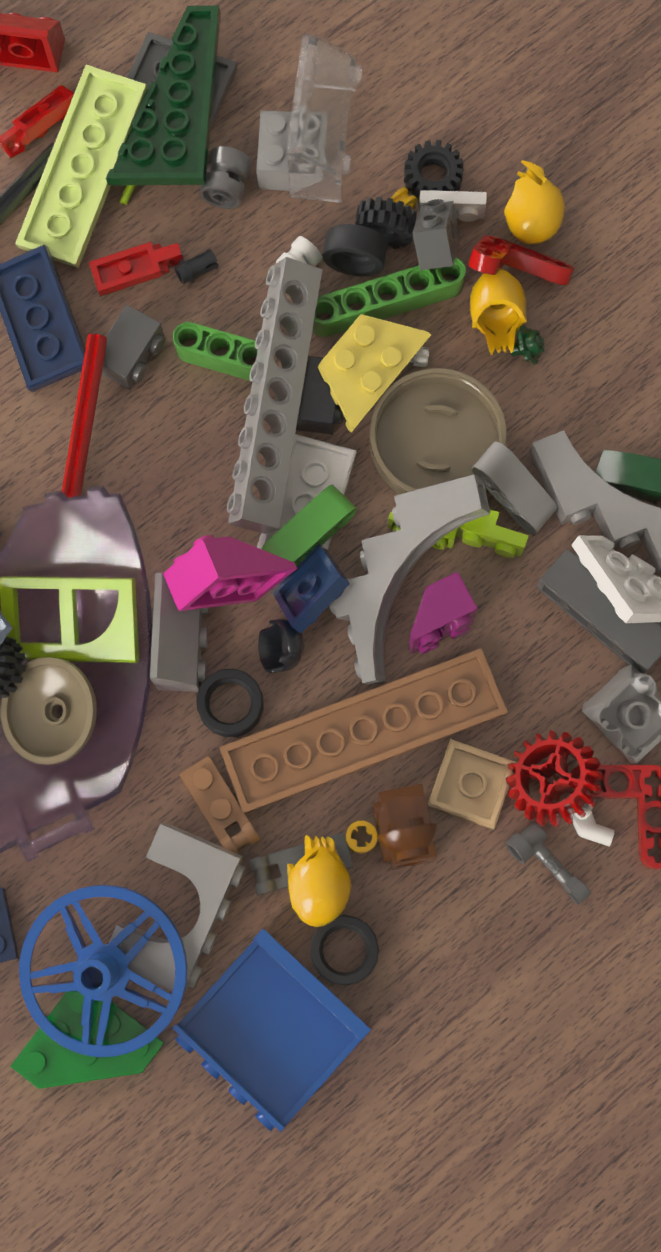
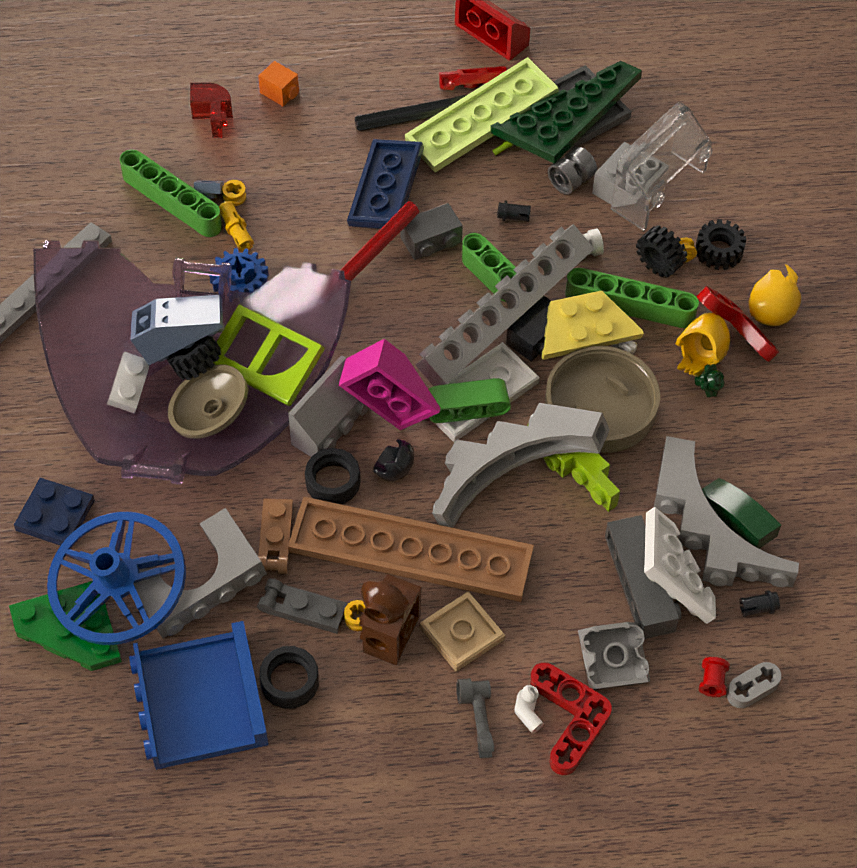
camera: 30 degrees right, 20 degrees down
(133, 266) = (472, 189): red hinge -> none
(310, 588) = (444, 431): dark blue plate -> none
(320, 884) = (302, 615): yellow helmet -> none
(355, 250) = (635, 247): black tyre -> none
(436, 234) = (691, 273): dark grey brick -> none
(443, 612) = (517, 502): magenta slope -> none
(468, 205) = (719, 269): white plate -> none
(514, 488) = (632, 456): light grey beam -> none
(558, 750) = (522, 655): red gear -> none

